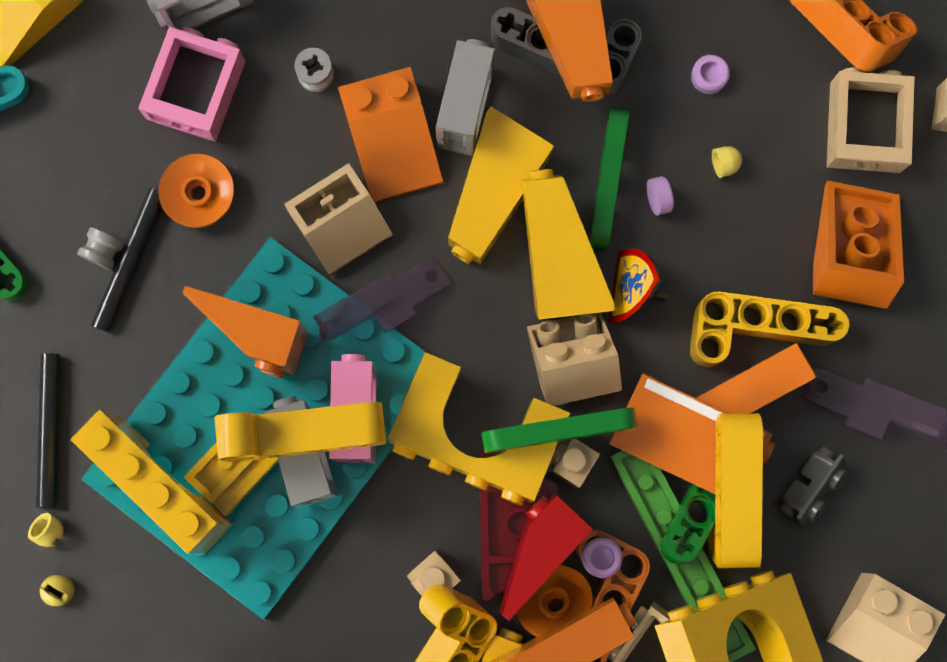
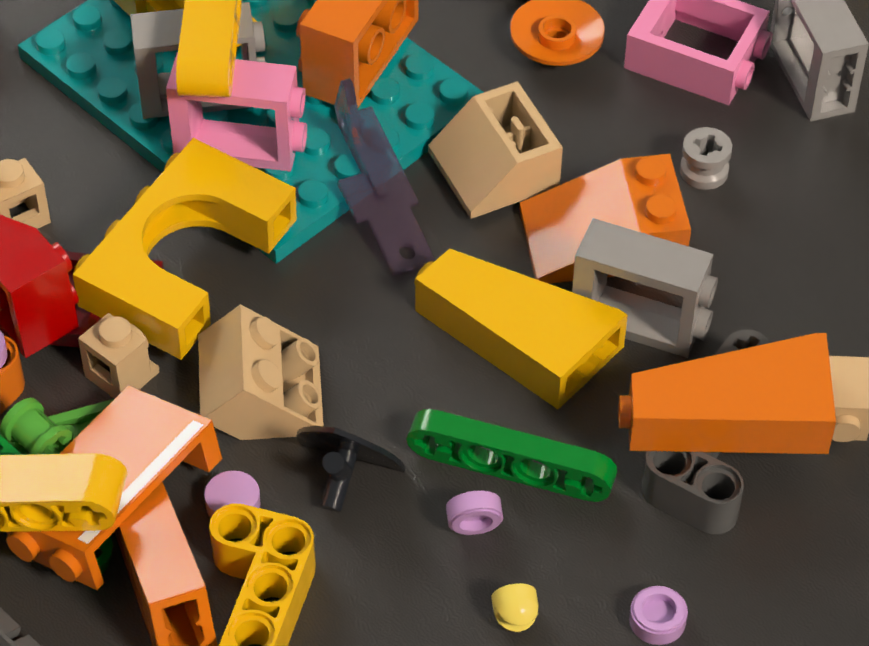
camera: 100 degrees right, 30 degrees down
(559, 430) = (153, 299): green beam -> none
(561, 257) = (410, 363): yellow slope -> none
(663, 498) = (33, 429): none -> bright green bush
(669, 360) = (231, 488): none -> lavender tile

